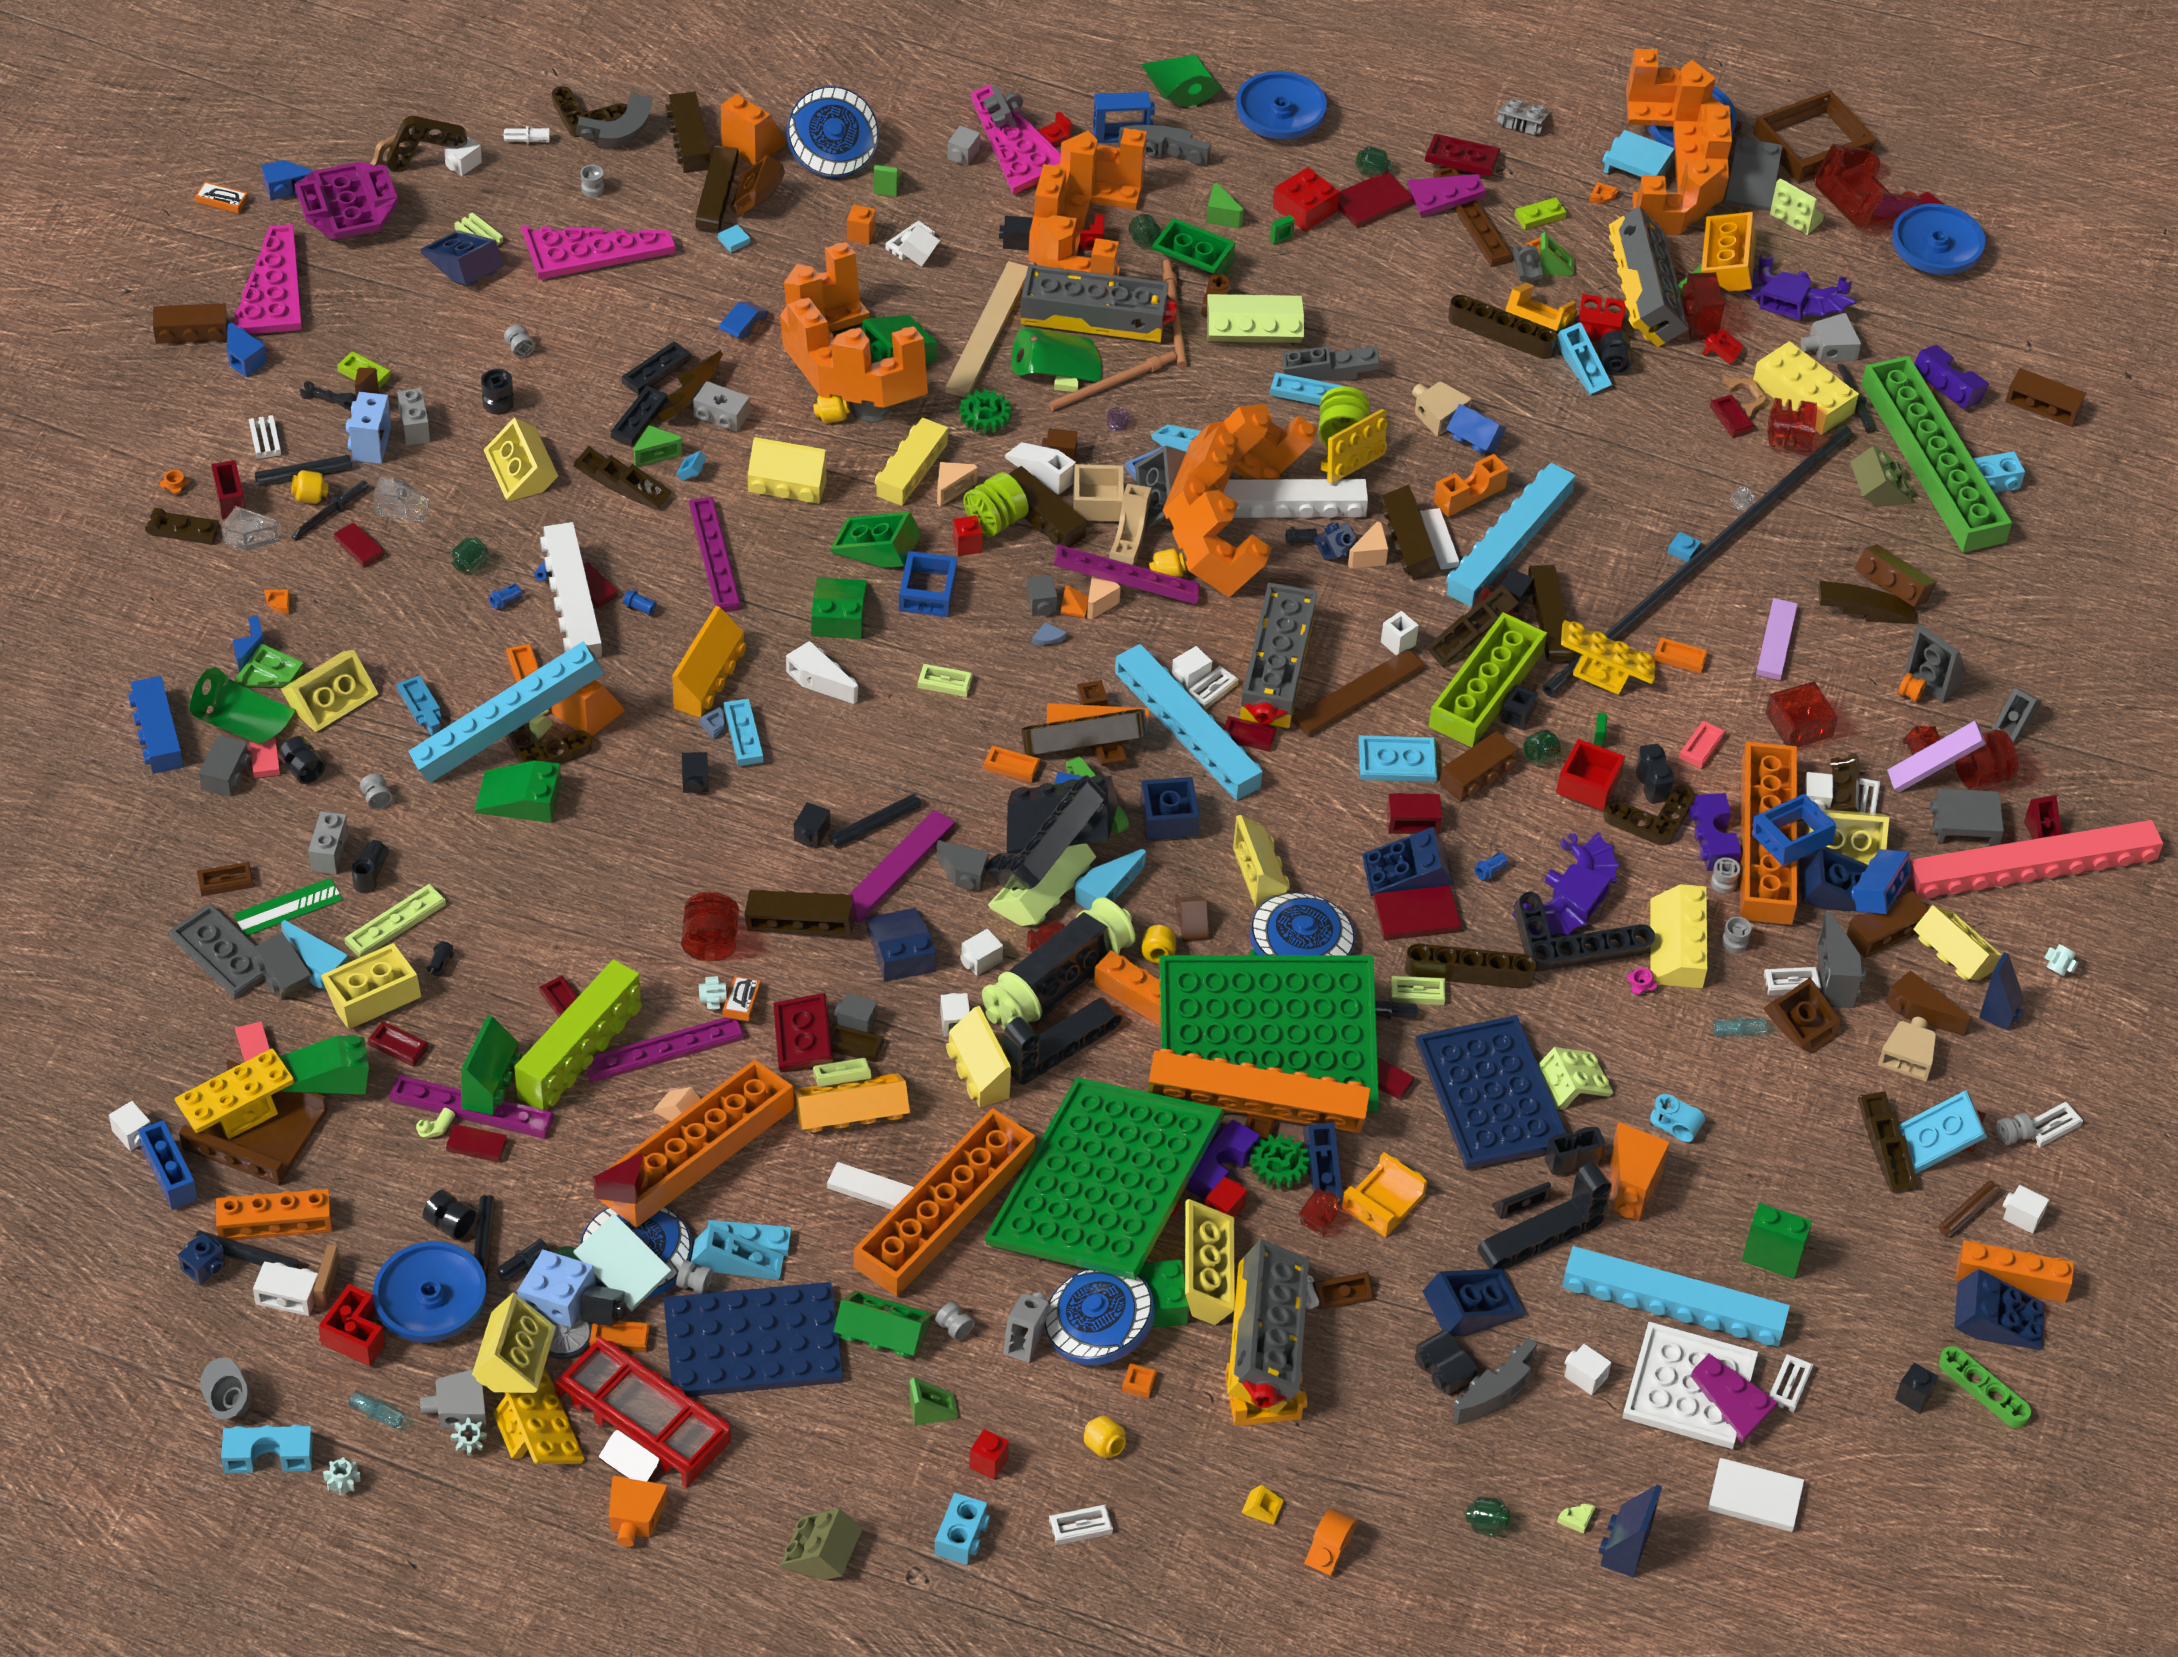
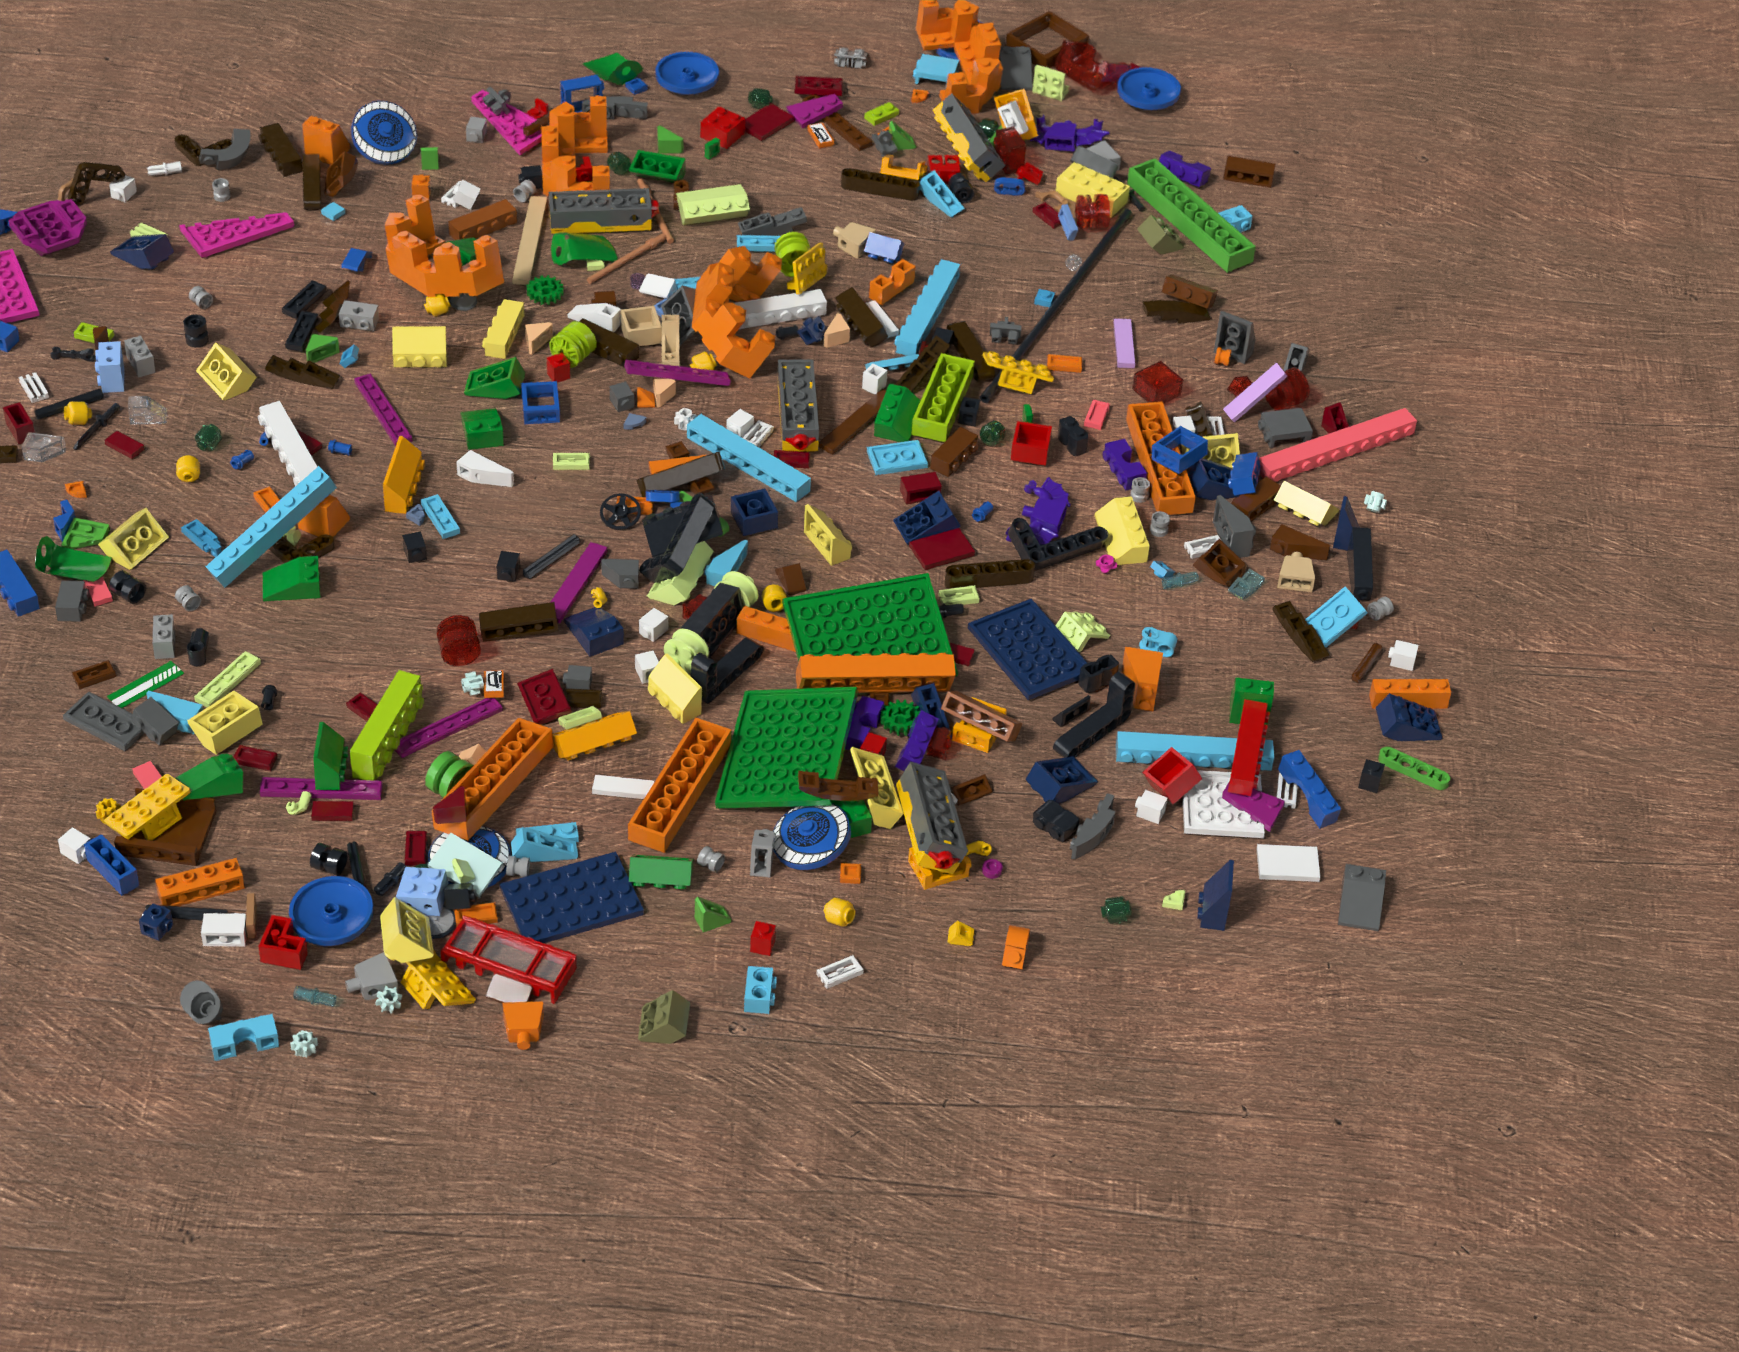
camera: 15 degrees left, 5 degrees down
(185, 1080) = (106, 808): none -> yellow gear
(430, 597) = (188, 467): none -> yellow head
(569, 1220) = (415, 848): none -> dark red tile
(616, 1271) = (463, 870): none -> yellowish green slope
(635, 1121) = (446, 773): none -> bright green wheel
(924, 897) = (599, 596): none -> yellow arm
(931, 290) = (483, 221): none -> dark orange brick
(988, 771) = (620, 511): none -> black wheel
(1004, 250) = (524, 190): none -> light grey wheel
(1044, 155) = (536, 126): none -> reddish brown axle
(1050, 760) = (662, 496): none -> blue beam
(1117, 644) = (683, 417): none -> white gear
(1142, 433) = (658, 286): none -> white slope
(1145, 1259) = (838, 790): none -> reddish brown slope
(1206, 112) = (636, 86): none -> blue tile
(1287, 1204) = (919, 738): none -> dark purple arch
(1301, 926) = (866, 567): dish -> none
(1325, 1379) = (979, 847): none -> yellow arm
(1336, 1415) = (992, 868): none -> magenta tile
(1387, 1184) = (981, 716): none -> dark orange brick
(1412, 693) = (896, 414): none -> green slope
(1434, 612) = (893, 363): none -> medium azure plate
(1442, 233) = (820, 135): none -> tile
(1611, 587) = (1005, 329): none -> dark grey hips
(1627, 1330) = (1172, 775): none -> red piece
(1653, 824) = (1081, 468): dark brown beam -> none
(1684, 263) = (989, 126): none -> clear green head
(1687, 361) = (1009, 186): none -> blue beam
(1717, 1005) = (1161, 569): none -> dark azure plate
(1718, 259) = (1013, 117): none -> white slope
(1746, 1312) = (1248, 748): none -> red brick
(1752, 434) = (1068, 222): none -> medium blue tile
(1818, 347) = (1094, 161): none -> dark grey beam
(1828, 1412) = (1321, 803): none -> blue arch
(1833, 1054) = (1246, 585): none -> clear light blue slope
(1842, 1571) = (1361, 897): none -> dark grey slope
(2006, 1055) = (1360, 563): none -> black slope
(2058, 1132) = (1401, 608): white tile -> none

